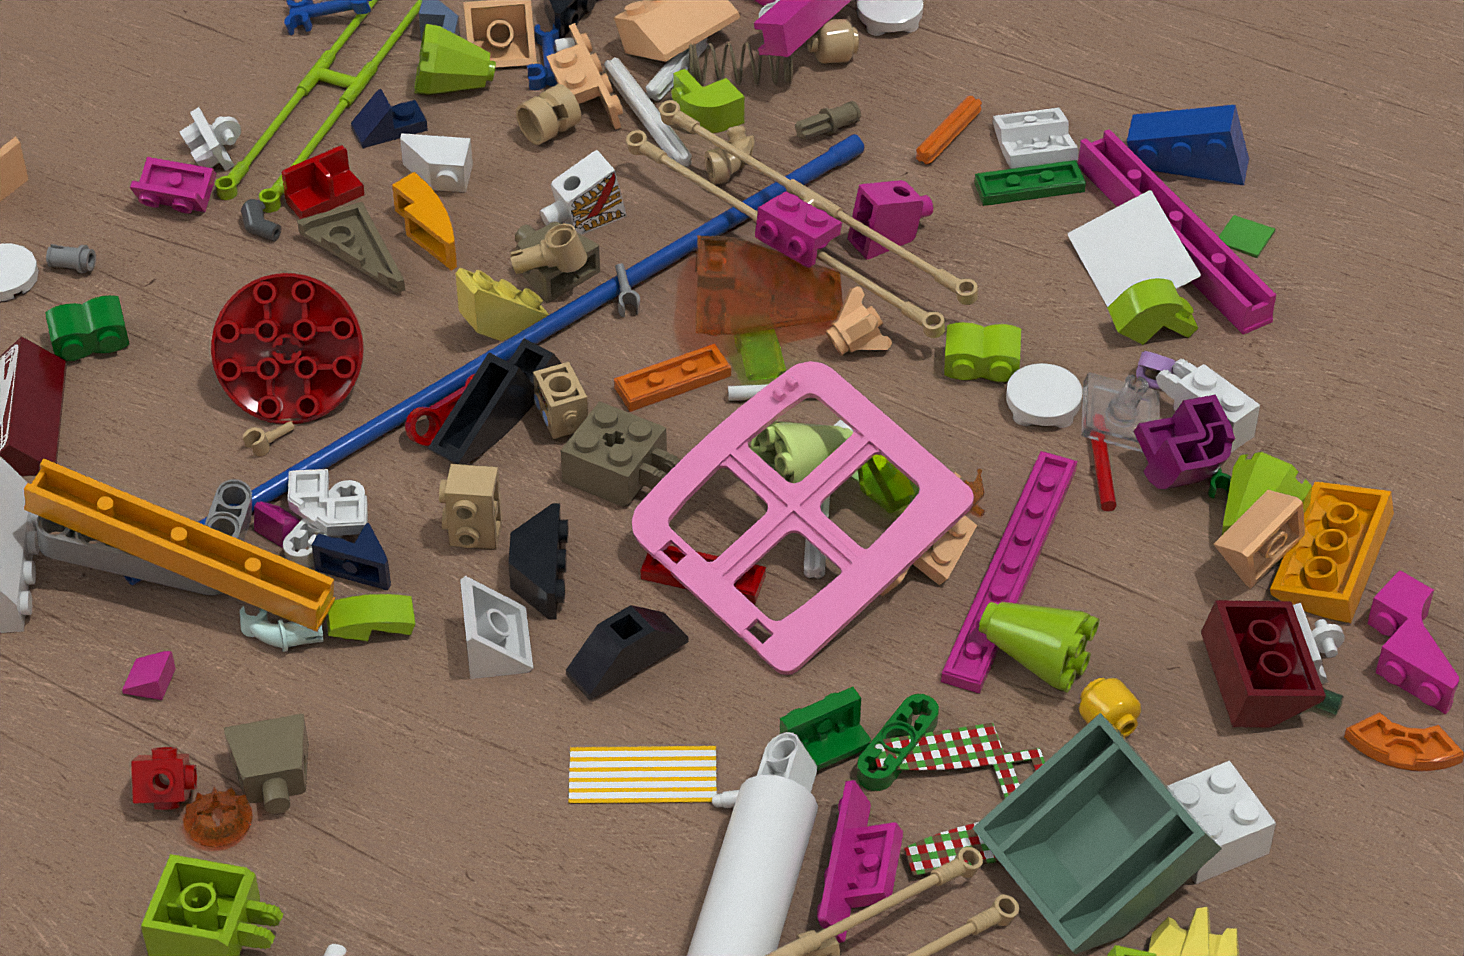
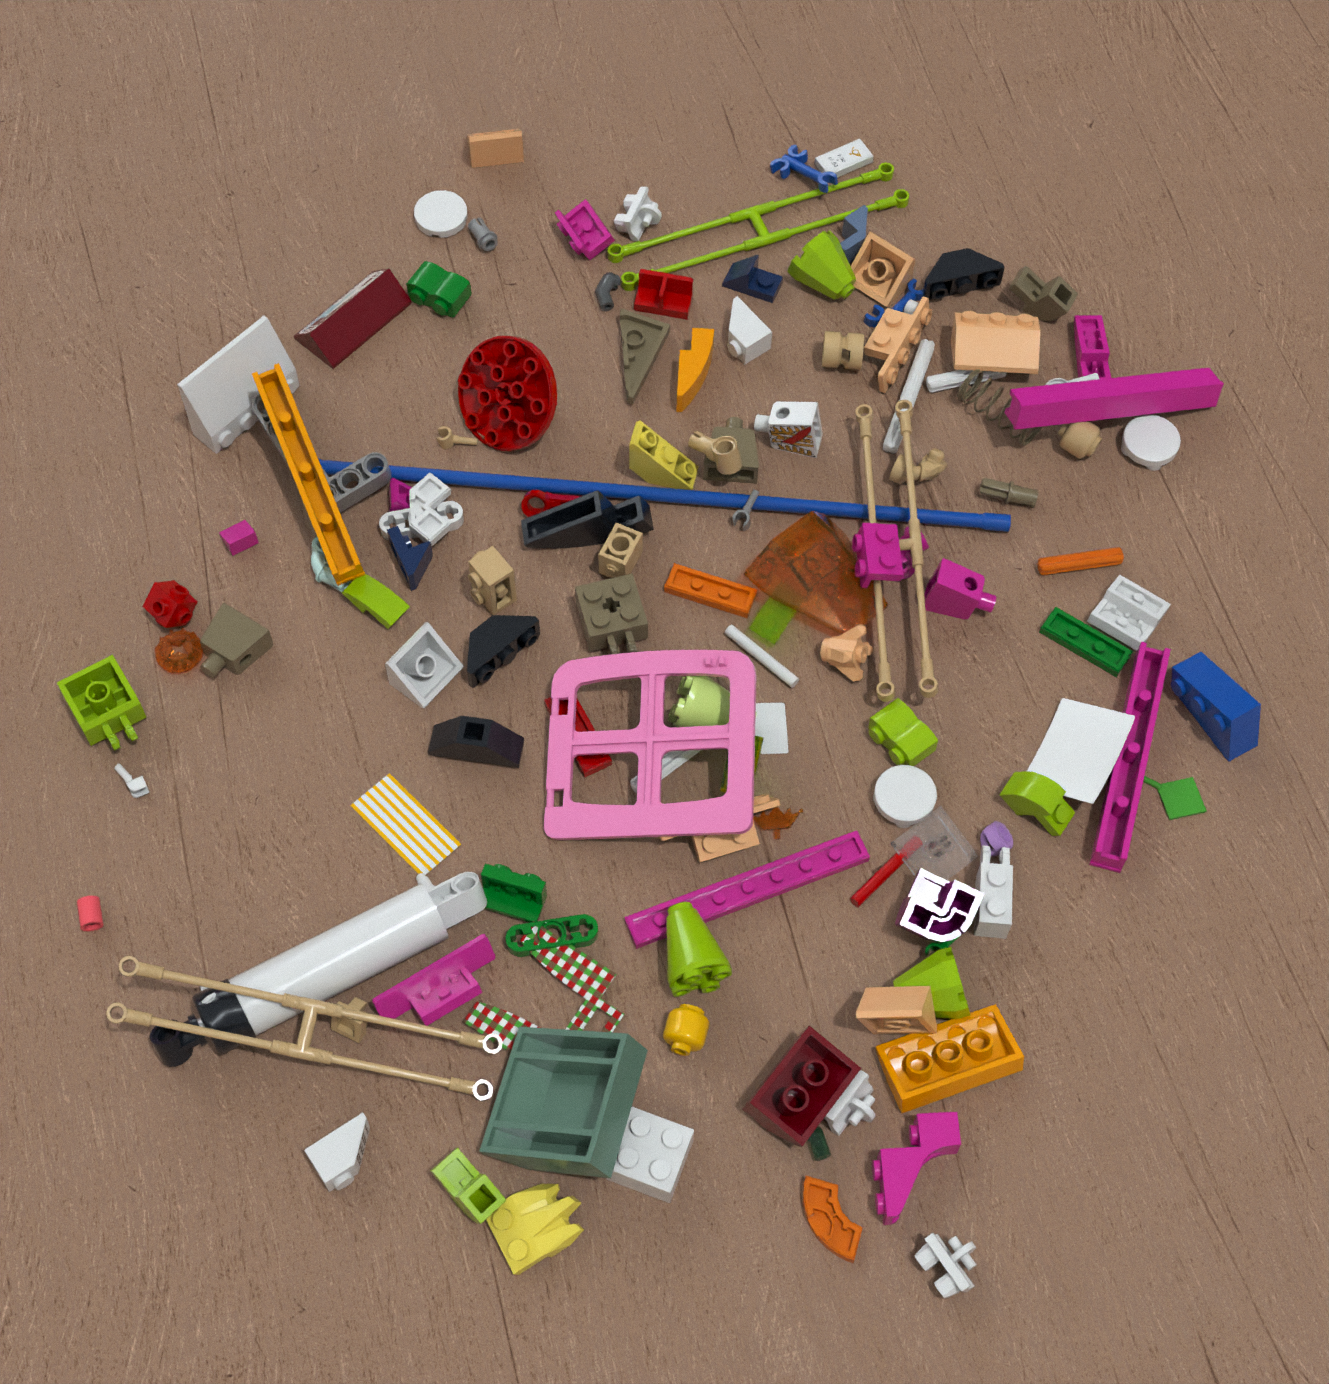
camera: 45 degrees right, 15 degrees up
(713, 106) = (945, 423): lime brick -> none

